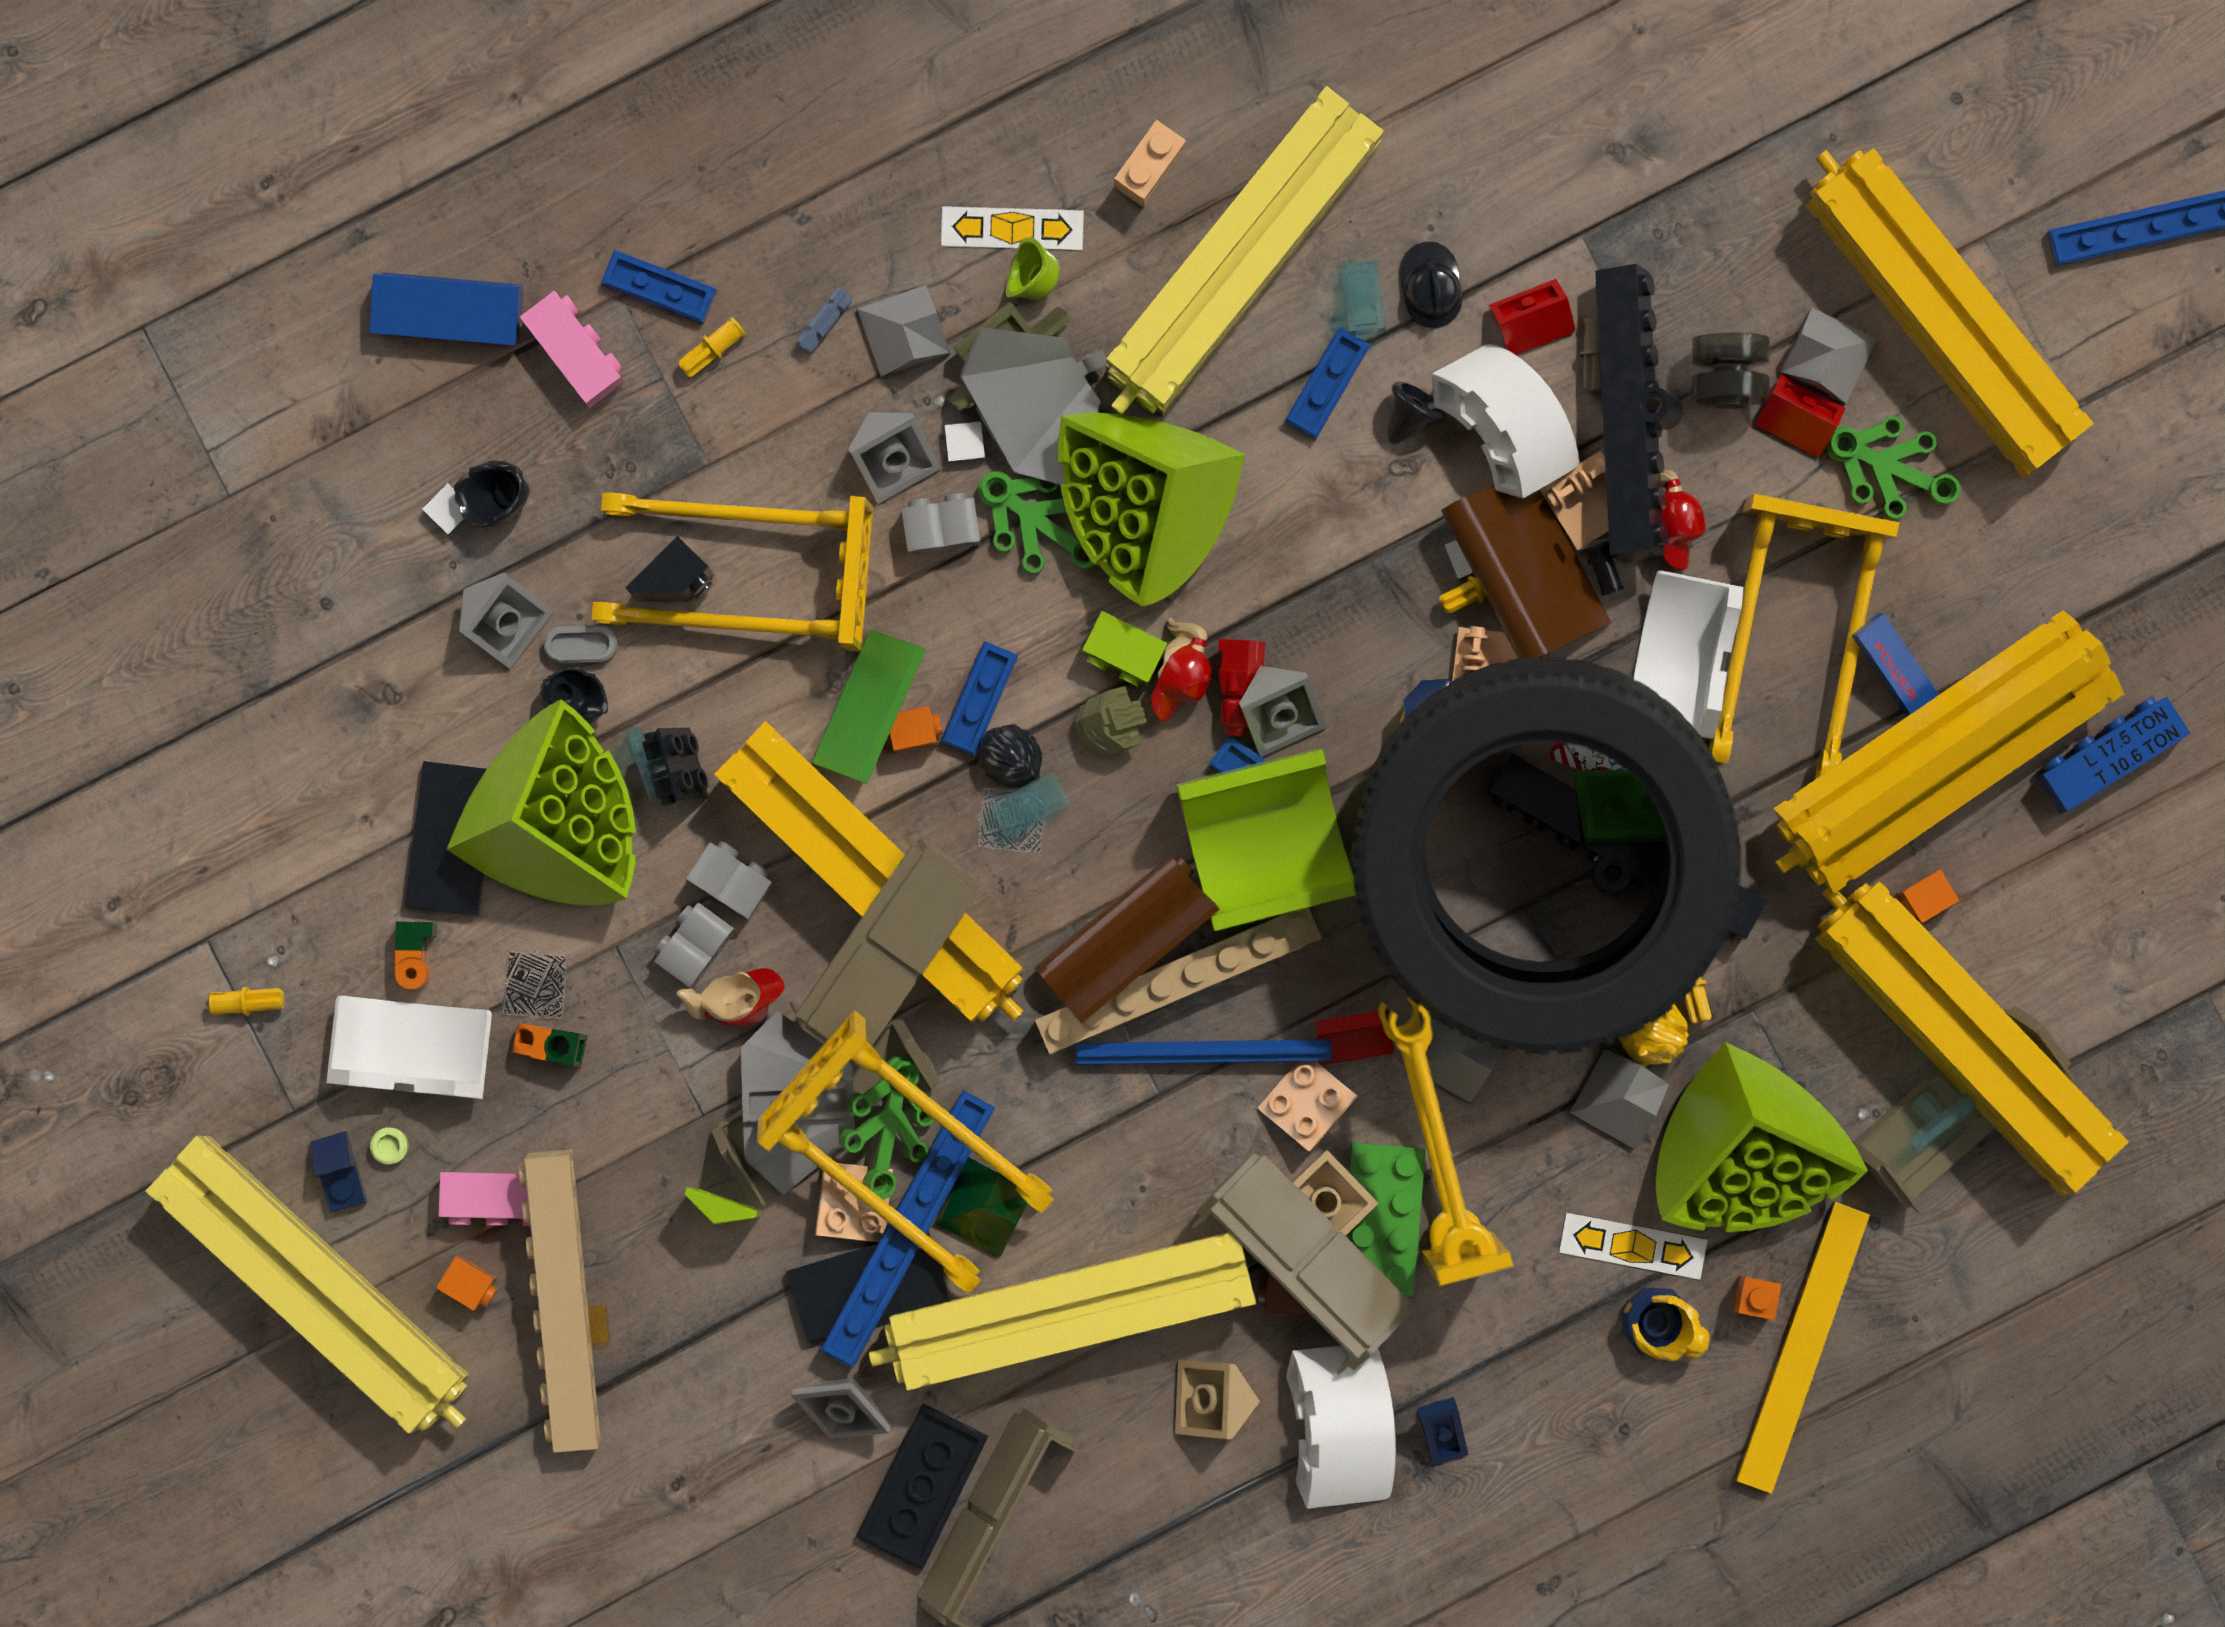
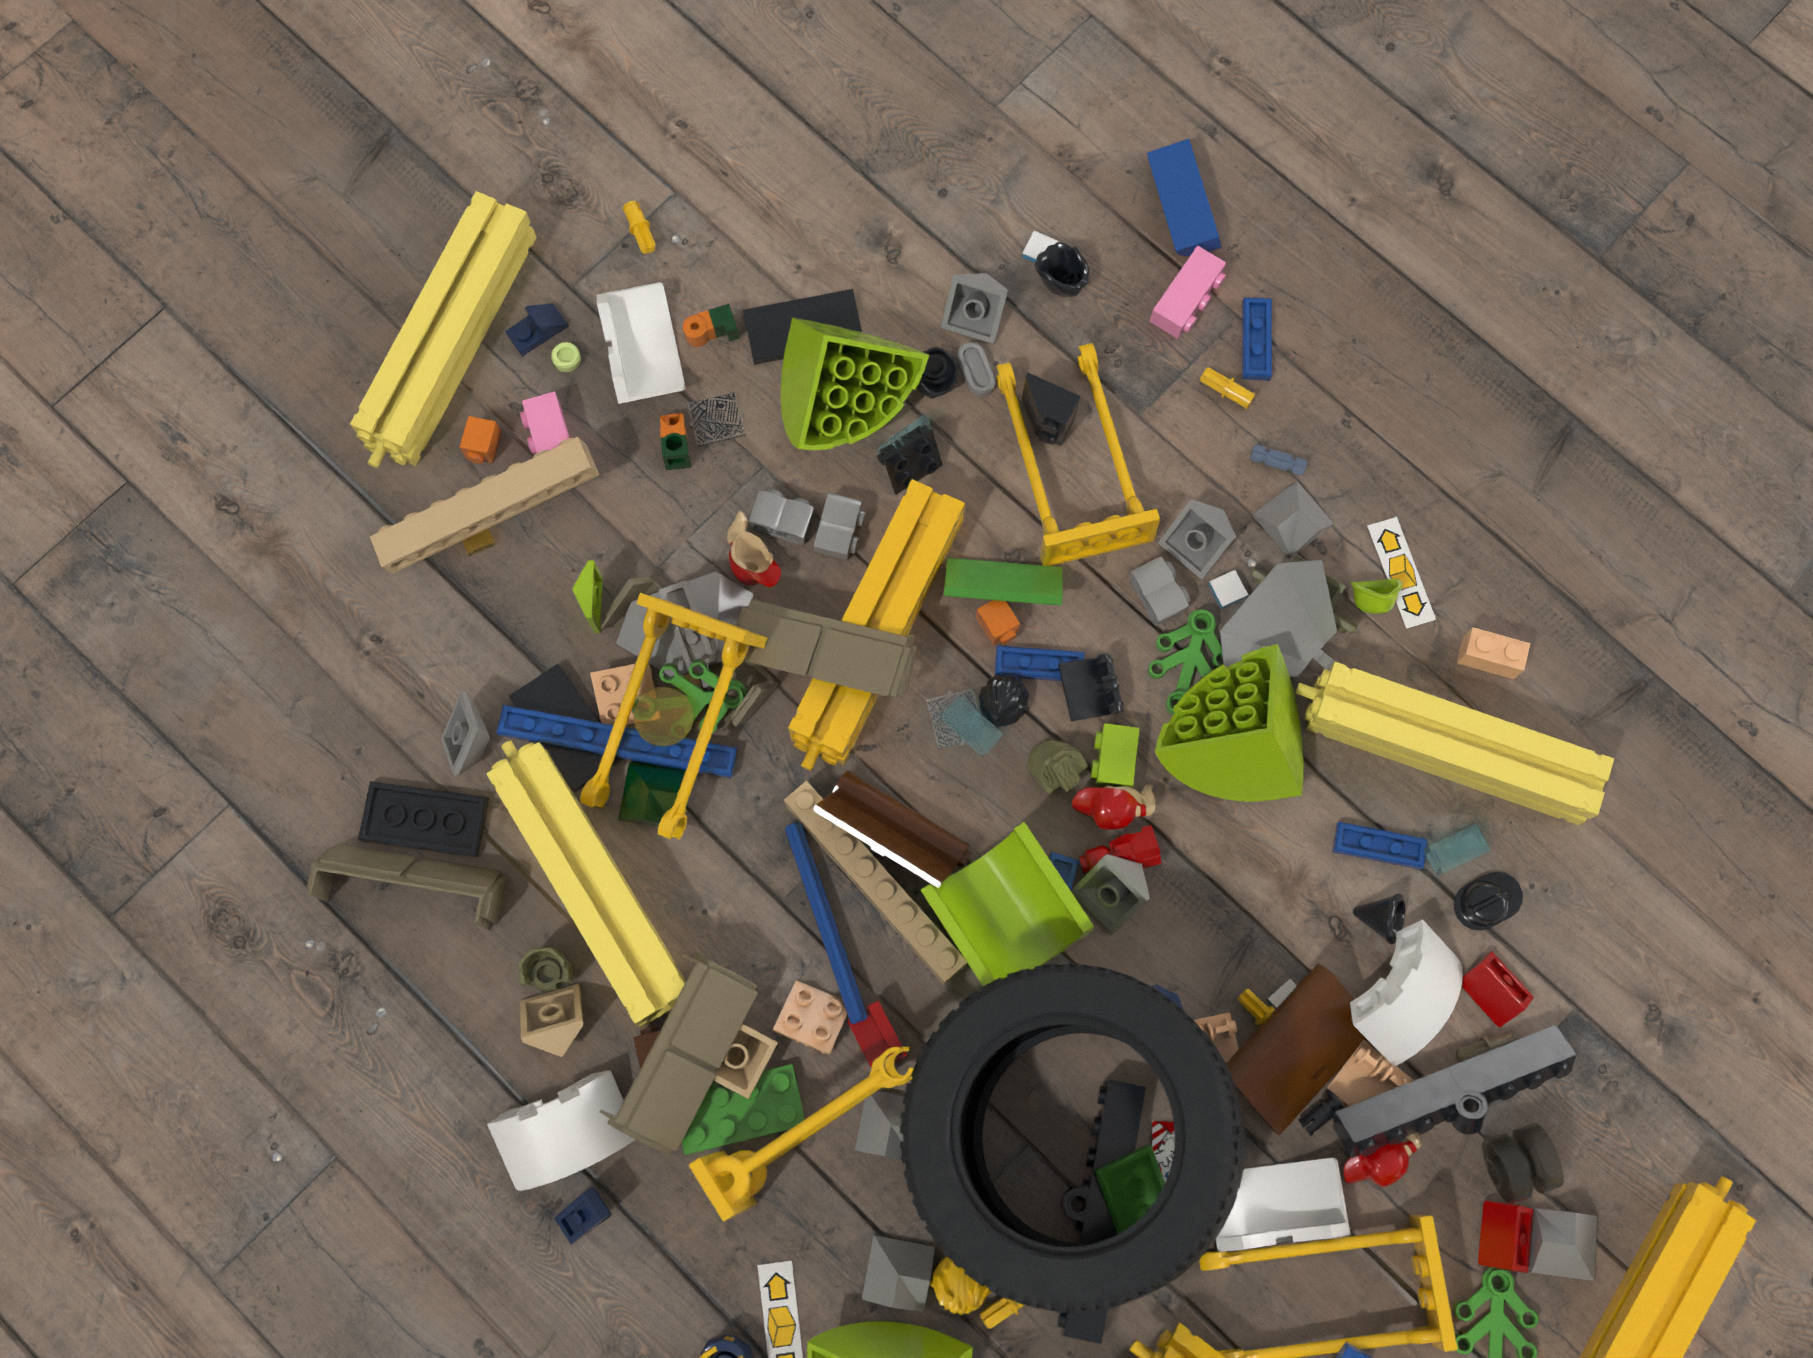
camera: 75 degrees right, 10 degrees down
(901, 1163) = (663, 716): none -> clear yellow tile
(1032, 648) = (1091, 688): none -> black hinge
(1151, 1391) = (544, 969): none -> olive hair

